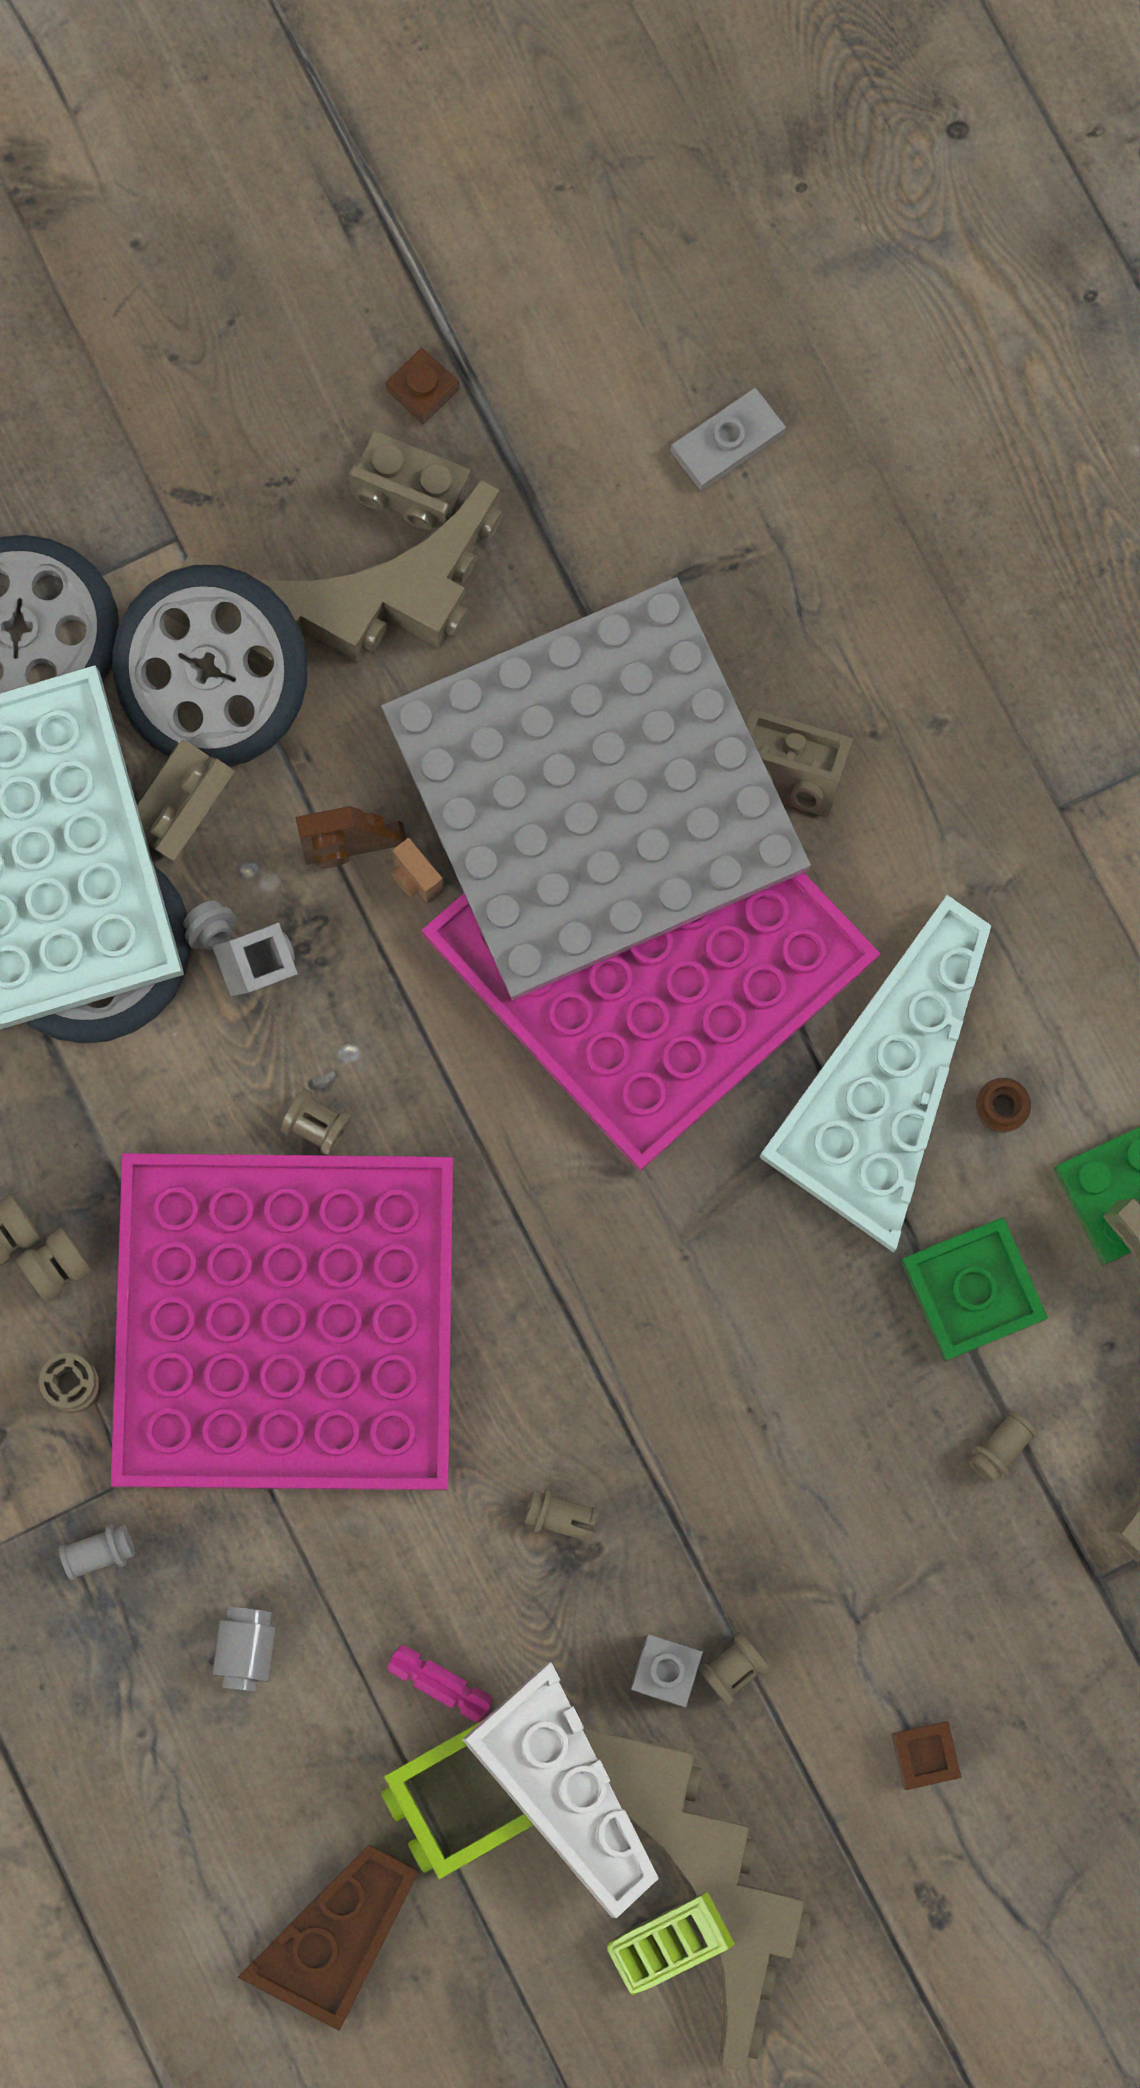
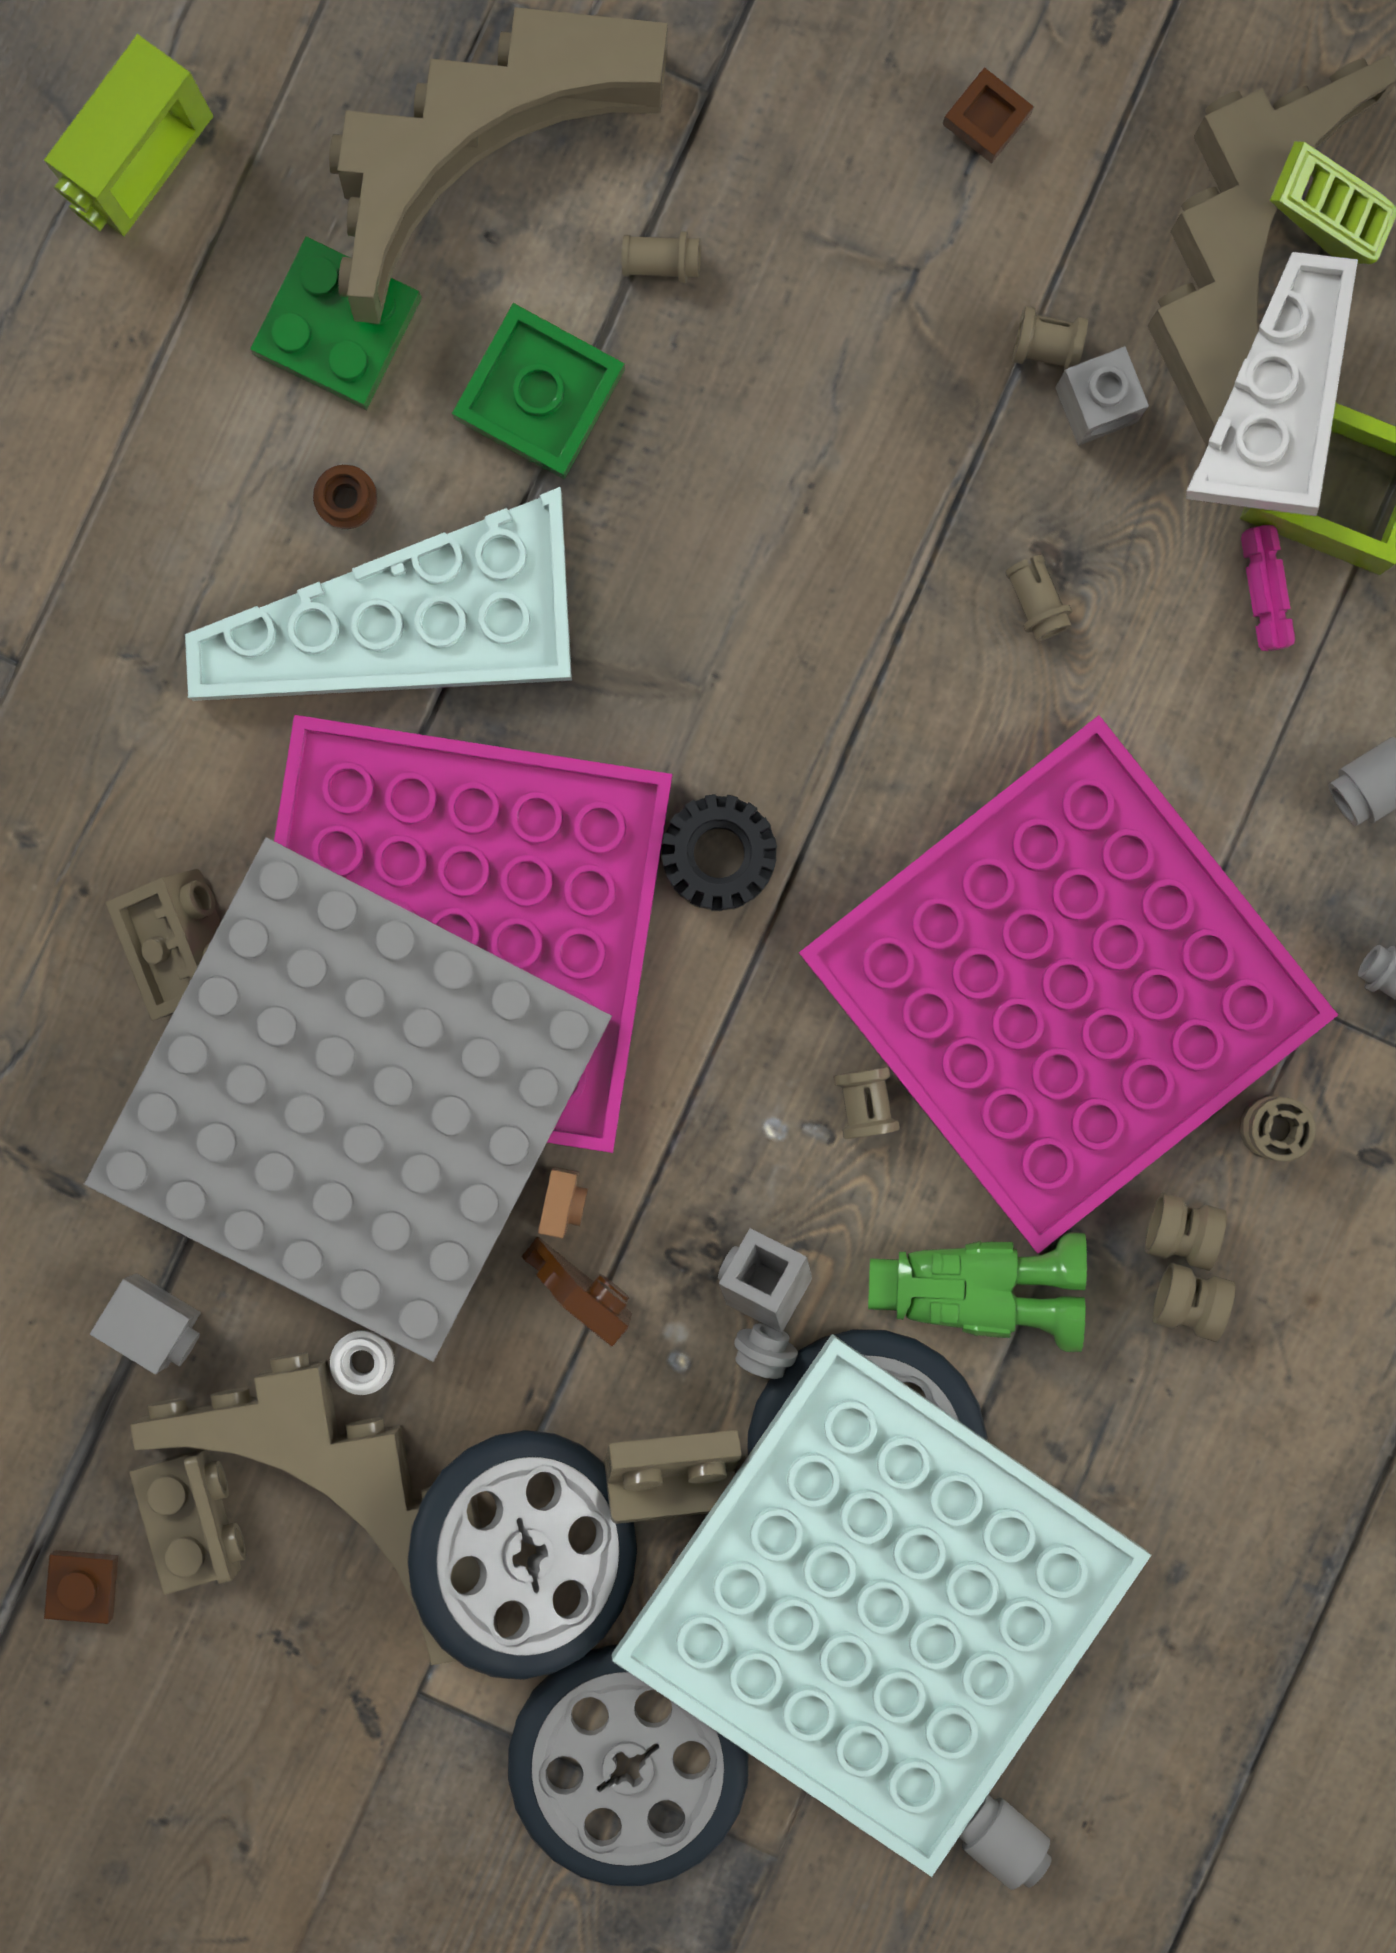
camera: 120 degrees left, 10 degrees up
(134, 1095) = (976, 1284): none -> bright green piece
(417, 652) = (347, 1376): none -> white plate
(555, 552) = (147, 1324): none -> light grey brick
(563, 1126) = (728, 814): none -> black tyre

